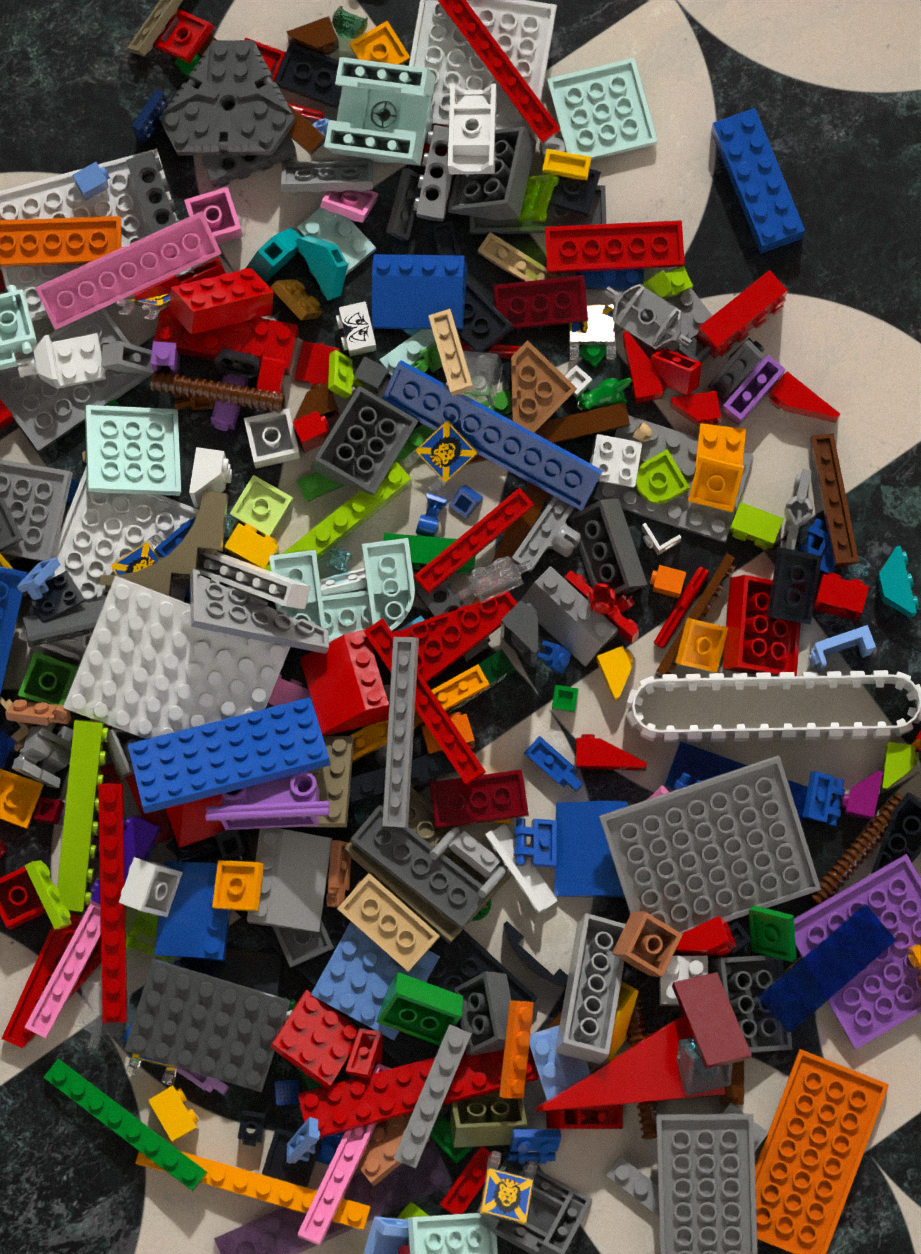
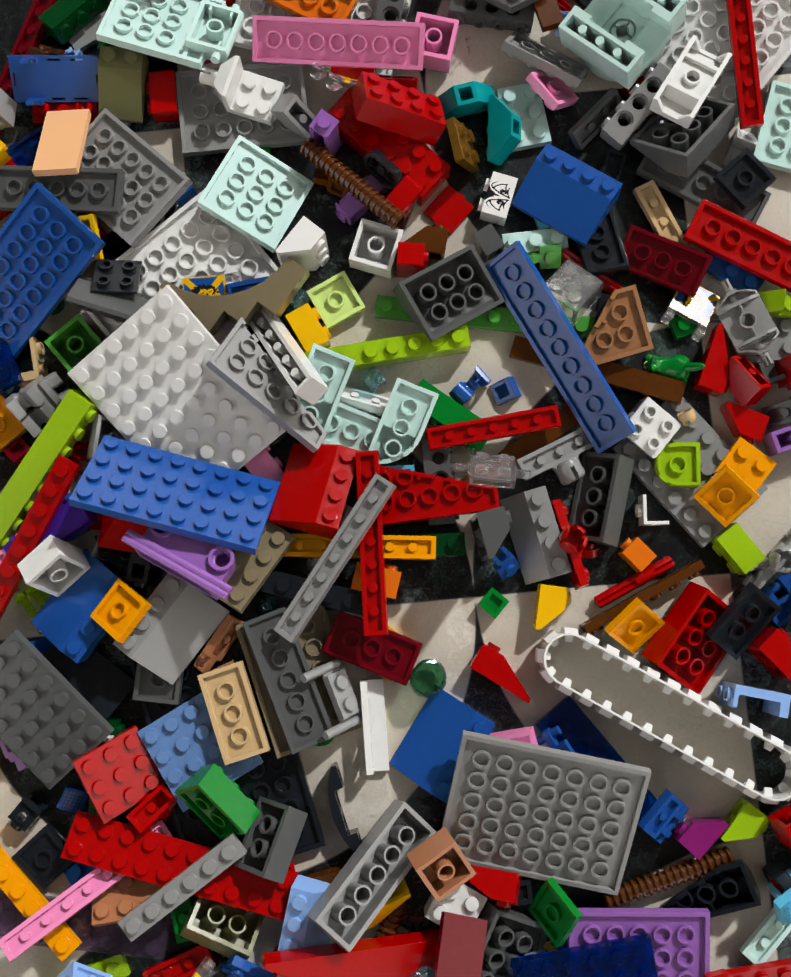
camera: 30 degrees right, 5 degrees up
(35, 580) = (105, 252): medium blue plate -> none
(37, 713) = (48, 365): nougat hinge -> none
(303, 1141) = (54, 857): medium blue plate -> none
(341, 375) = (463, 228): lime plate -> none
(444, 452) = (510, 340): flag -> none
(451, 352) = (565, 258): tan plate -> none
(516, 1049) = (275, 892): orange plate -> none
(537, 198) = (711, 170): clear neon green plate -> none
(543, 842) = (405, 714): blue plate -> none
(545, 798) = (428, 678): none -> clear green hair
(553, 764) = (452, 652): blue hinge -> none
(566, 164) = (752, 156): yellow tile -> none
(579, 380) = (659, 343): white plate -> none

